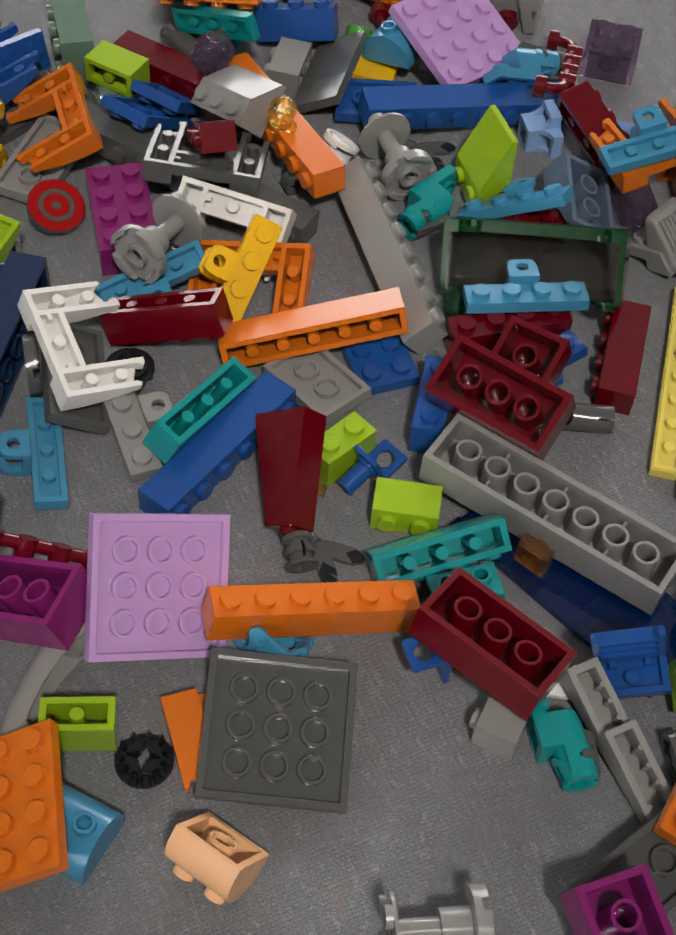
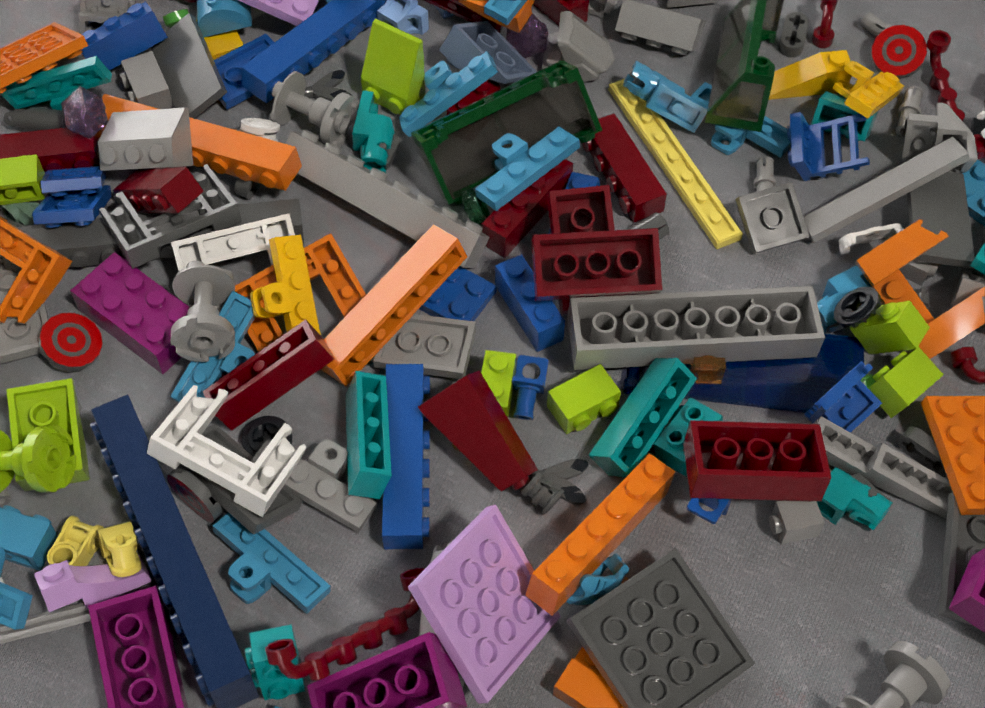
camera: 35 degrees left, 5 degrees up
(281, 115) = (204, 134): clear yellow brick -> none

